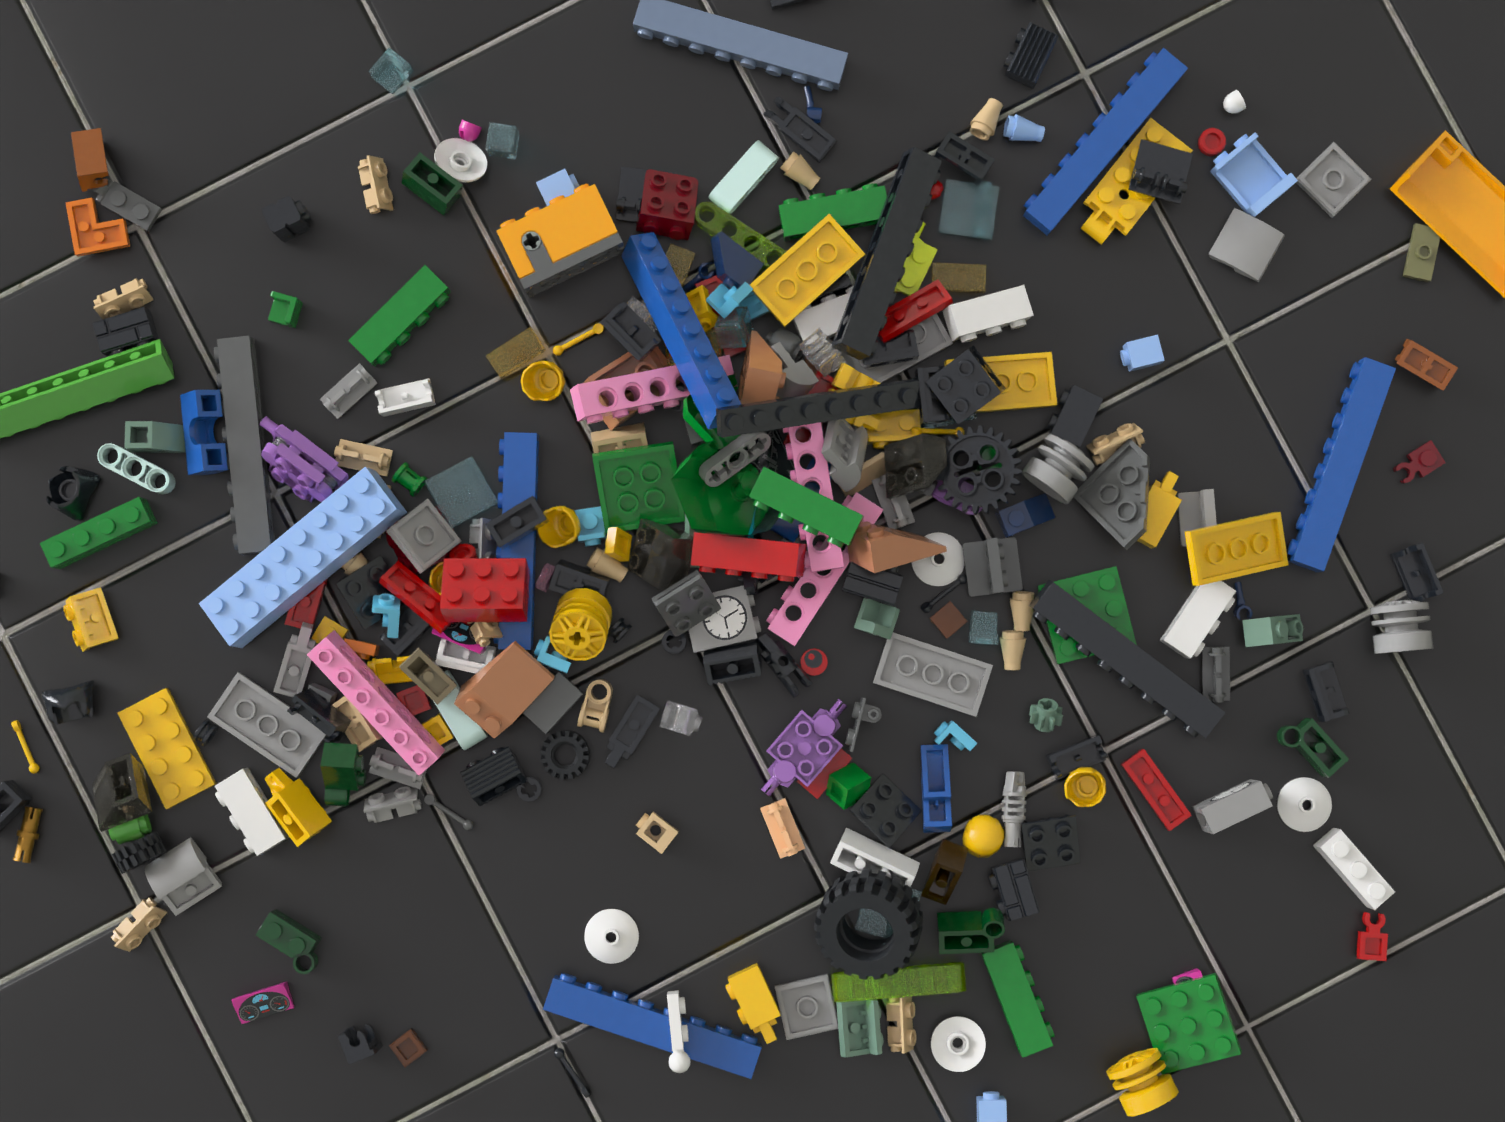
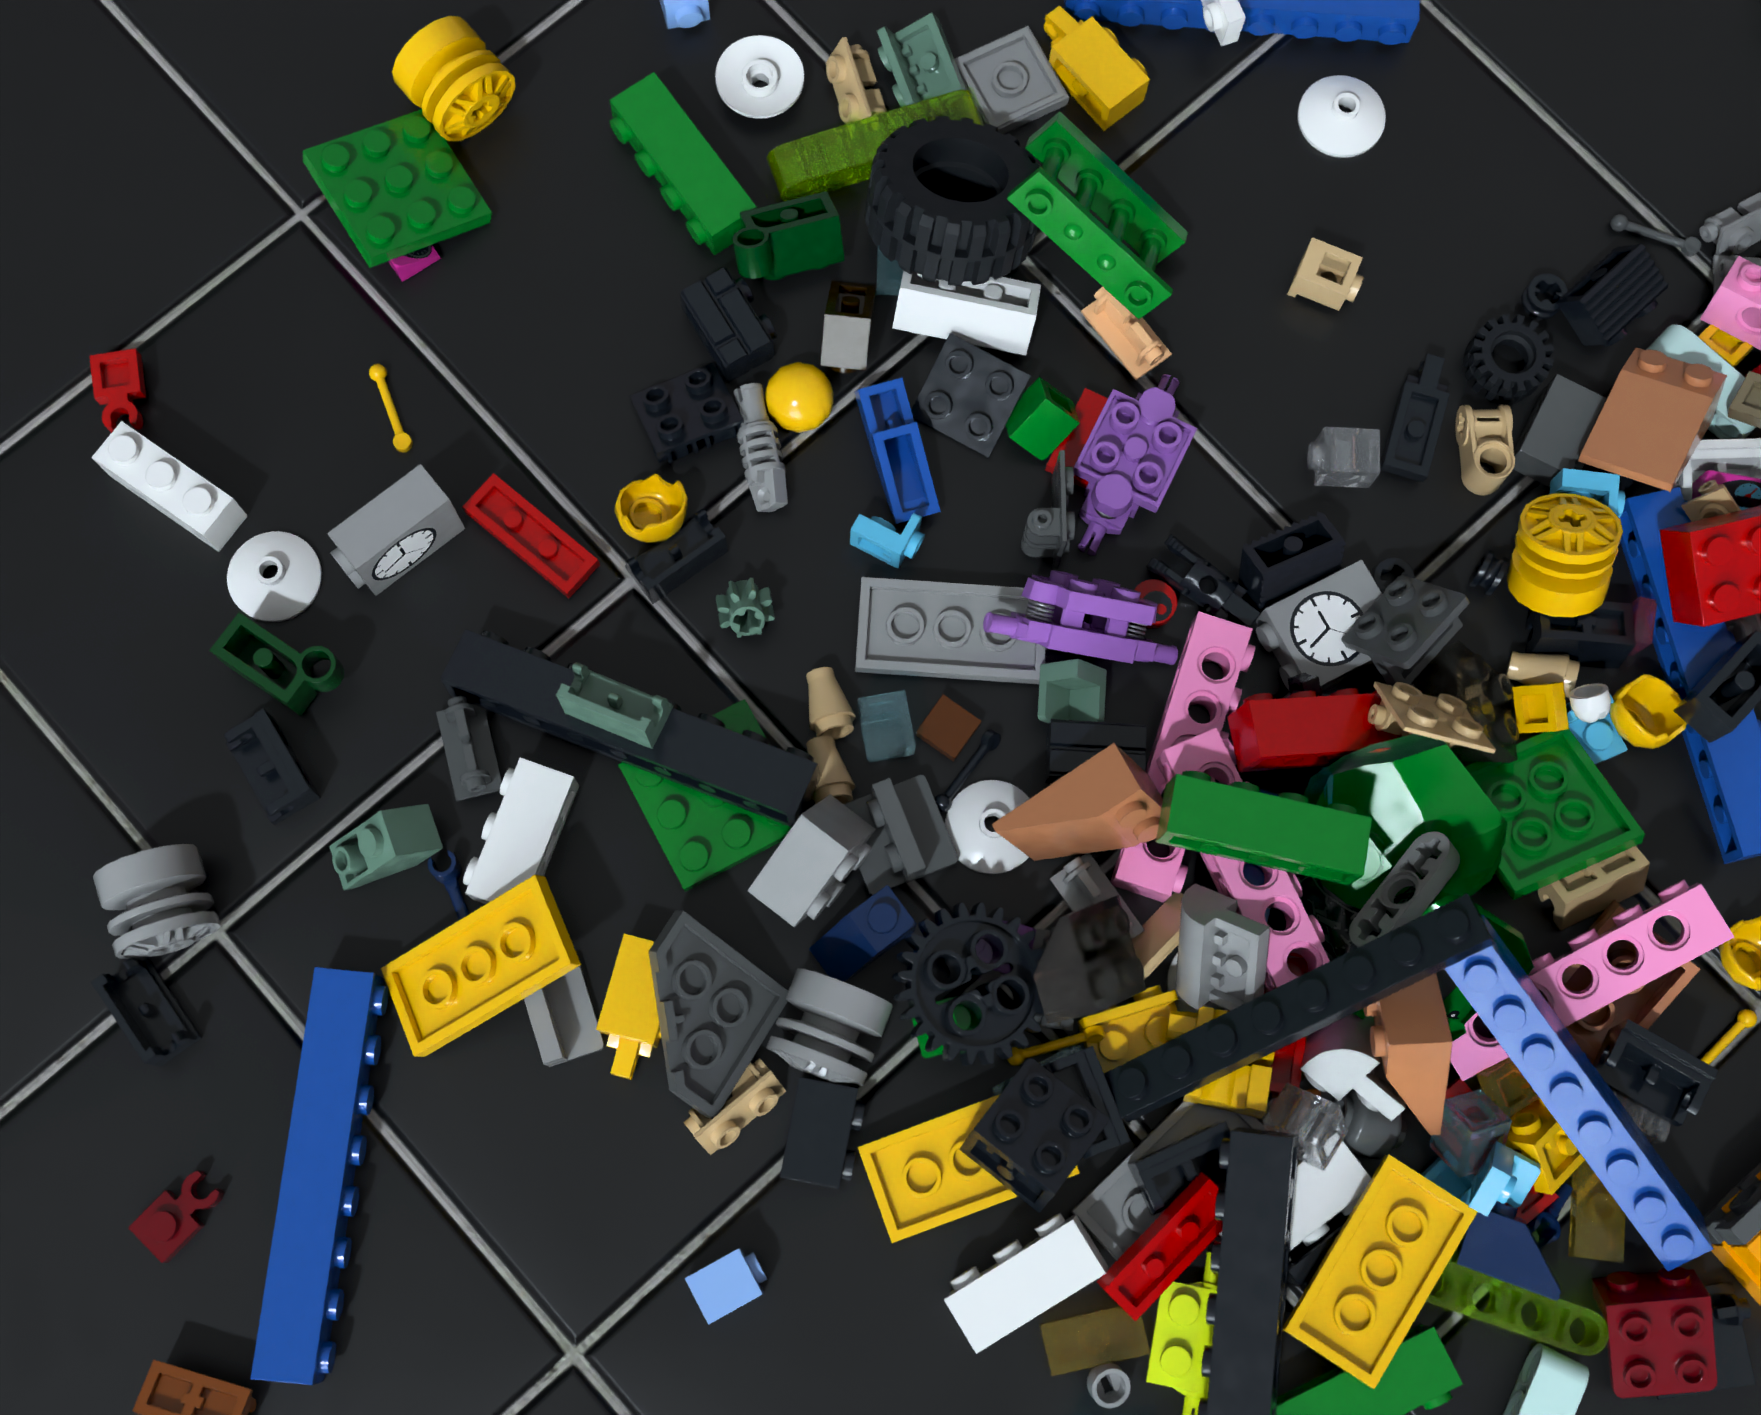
camera: 160 degrees right, 10 degrees down
(595, 537) = (1590, 702): none -> white hinge
(699, 542) = (1443, 718): none -> tan hinge
(773, 906) = (1115, 198): none -> green fence
(861, 656) = (1063, 624): none -> medium lavender piece
(964, 252) = (1118, 1381): none -> light grey hinge
(1045, 557) = (813, 861): none -> light grey brick
(1134, 668) = (614, 706): none -> sand green hinge
(1217, 867) = (401, 440): none -> yellow hinge

